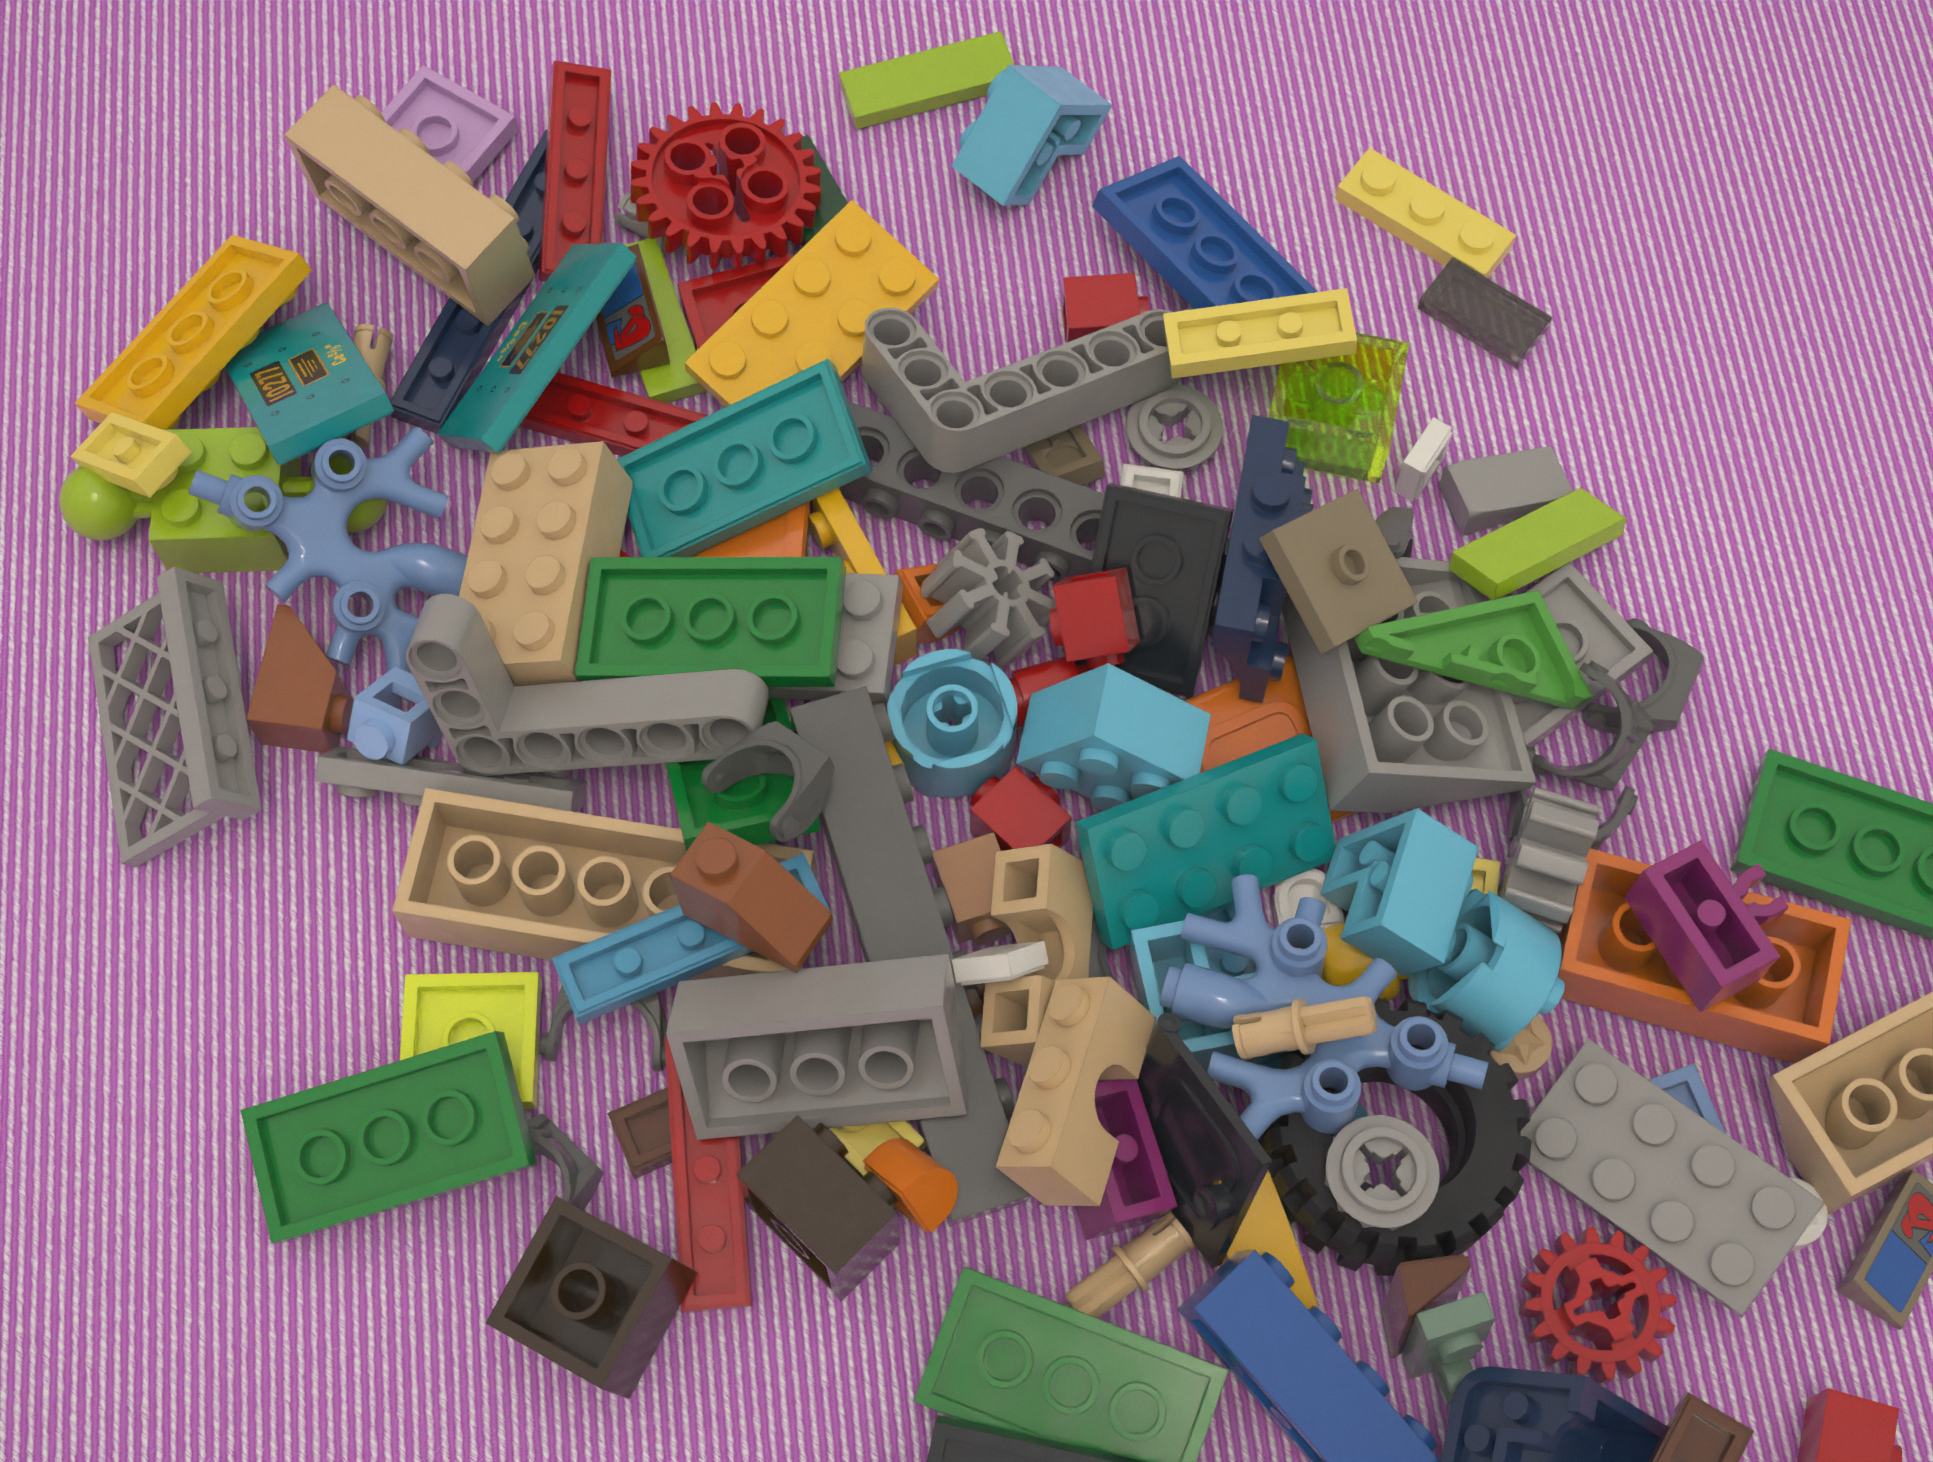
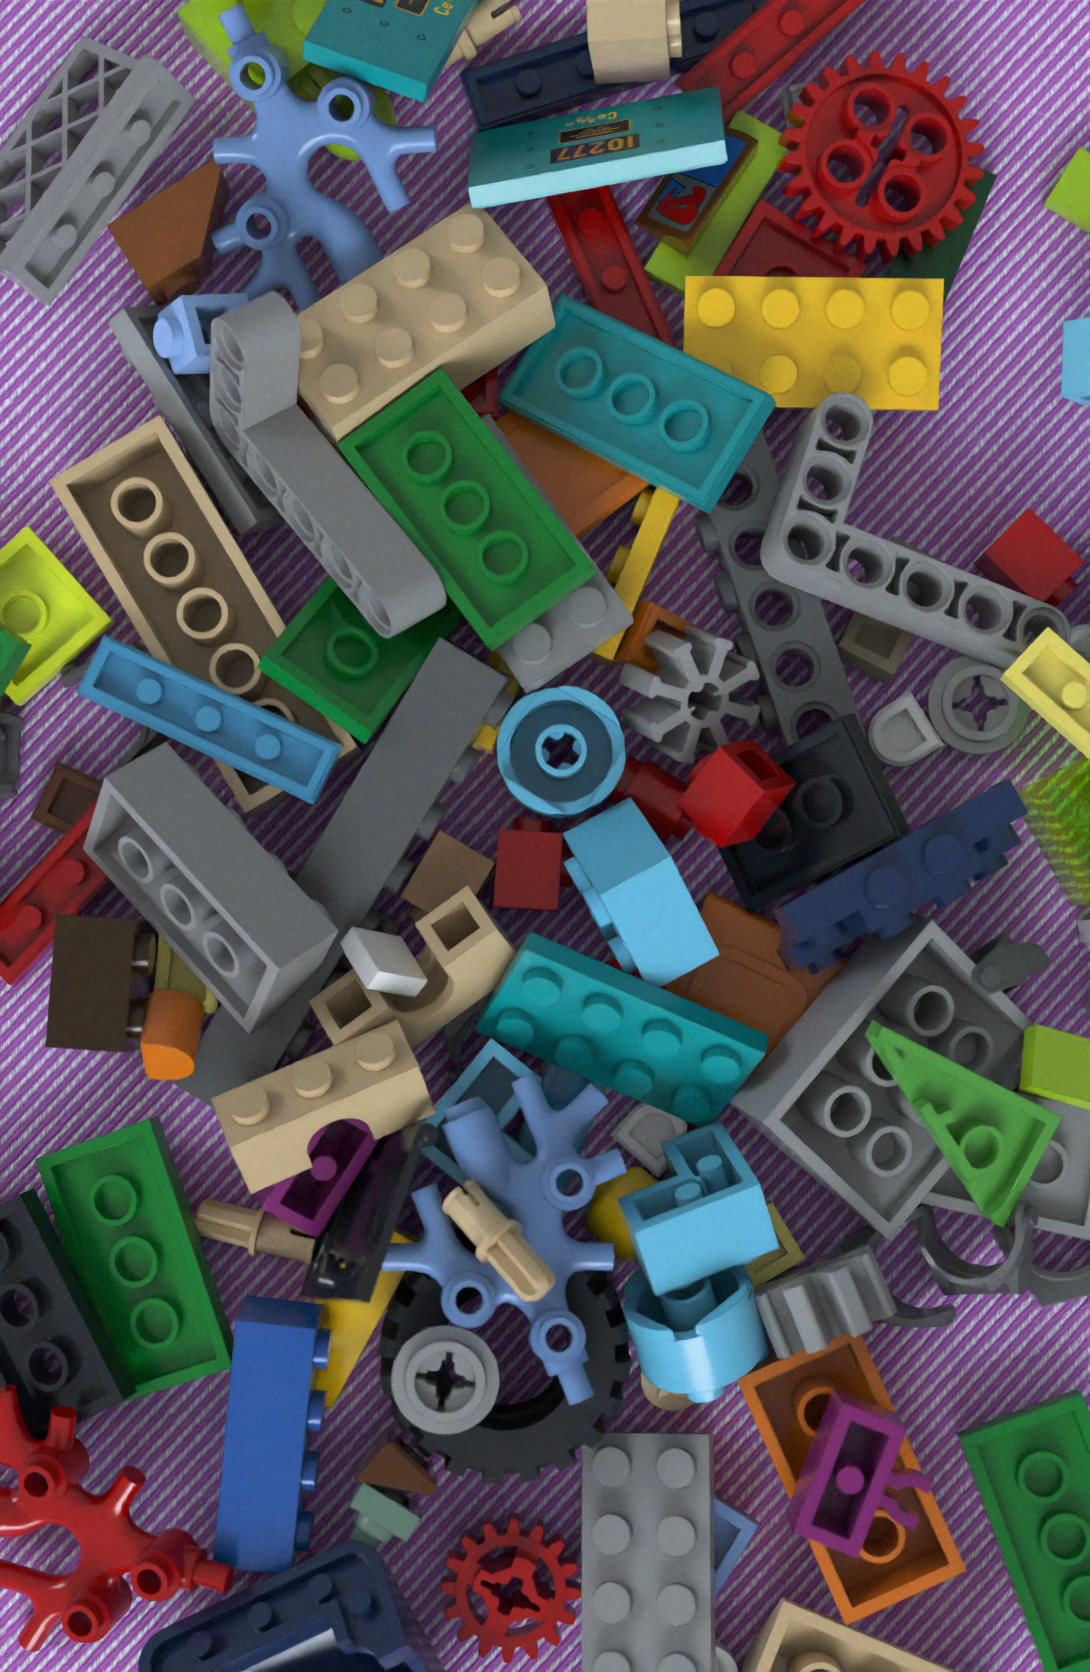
camera: 55 degrees right, 20 degrees up
(748, 897) = (256, 747): dark orange slope -> none
(777, 751) = (392, 701): dark grey helmet -> none
(1338, 570) = (919, 962): dark tan plate -> none

